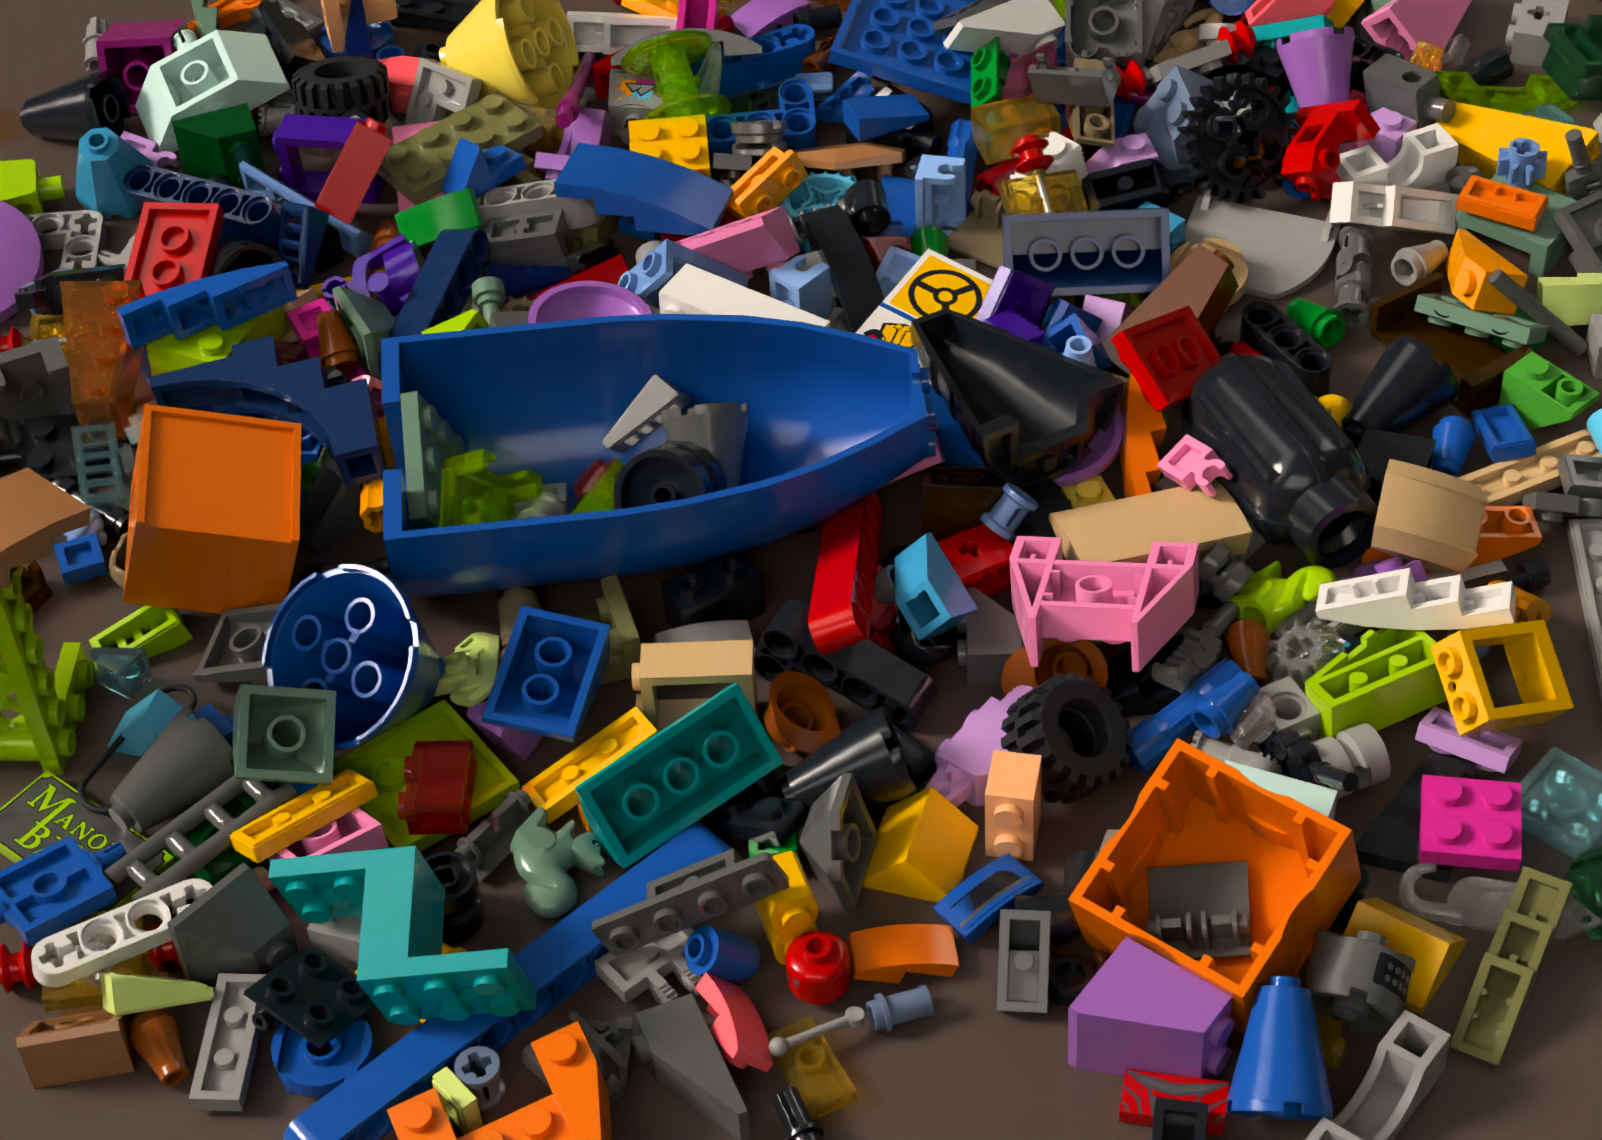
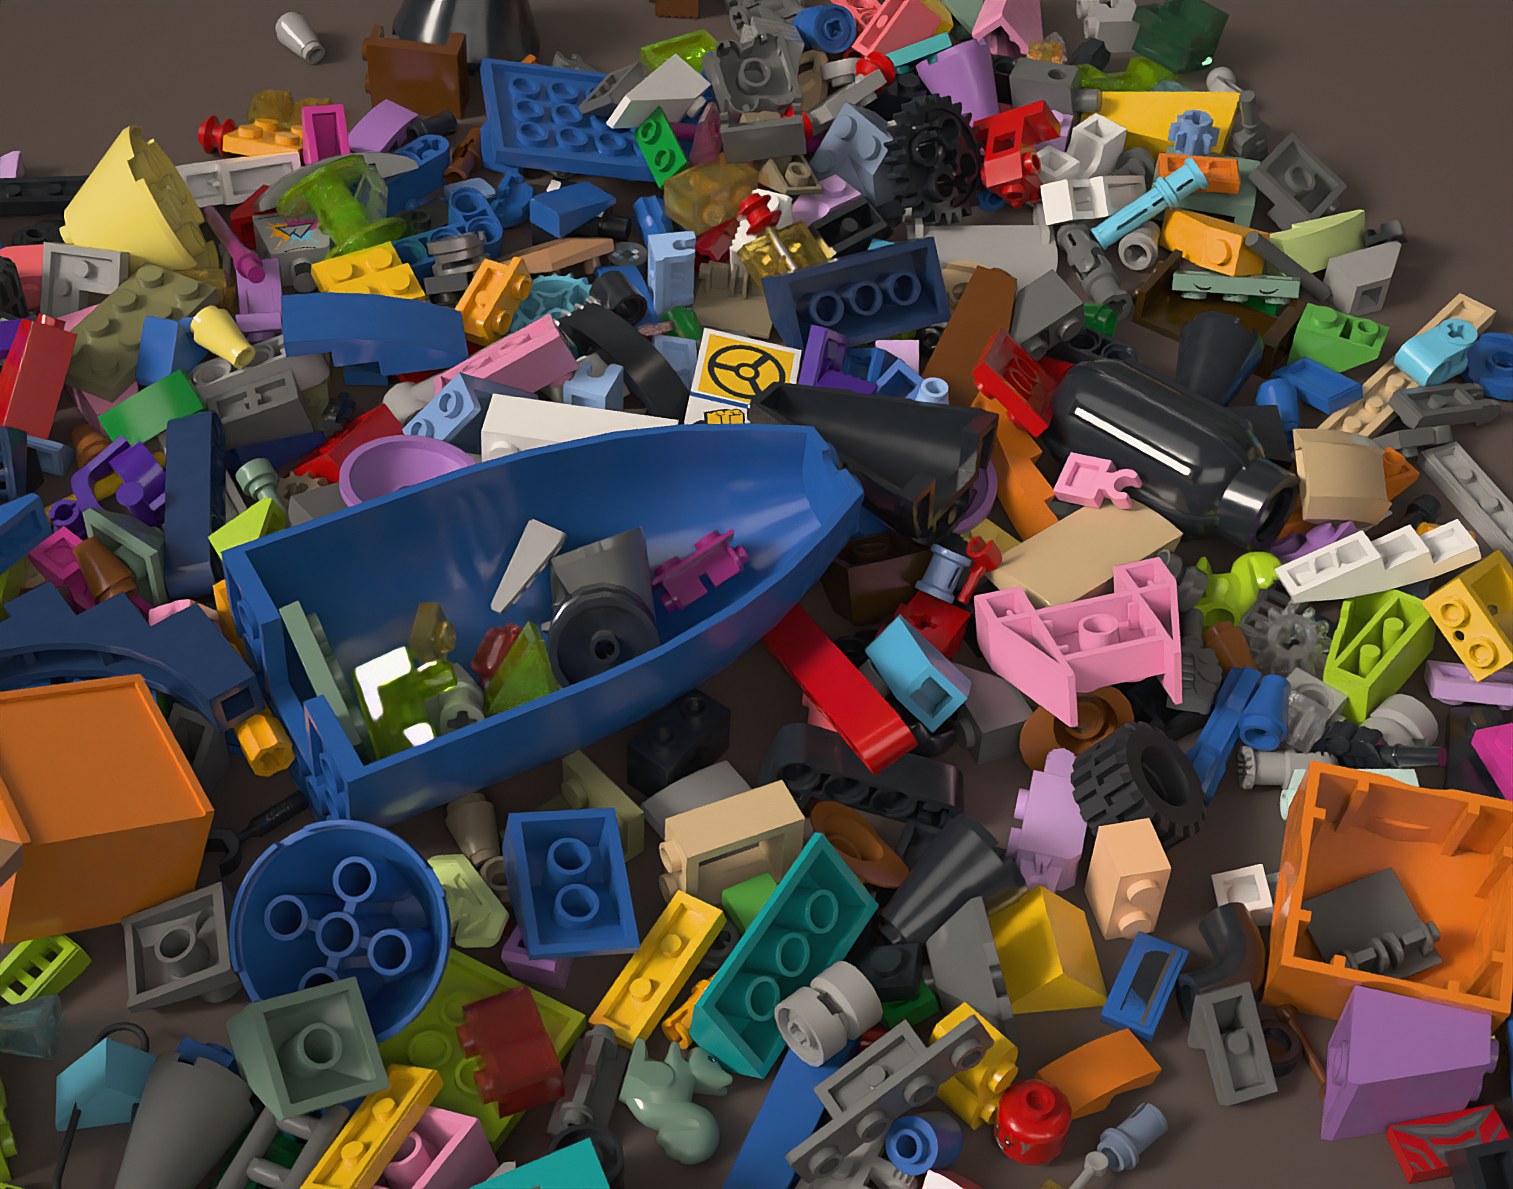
camera: 30 degrees left, 0 degrees up
(513, 165) = (220, 334): none -> light yellow cone
(547, 453) = (431, 633): none -> clear yellow plate
(687, 829) = (828, 1013): none -> light grey wheel
(808, 446) = (681, 578): none -> magenta hinge
(1049, 507) = (985, 558): none -> red hand
(1245, 308) = (1046, 314): none -> dark grey slope
(1455, 220) = (1166, 193): none -> medium azure pin

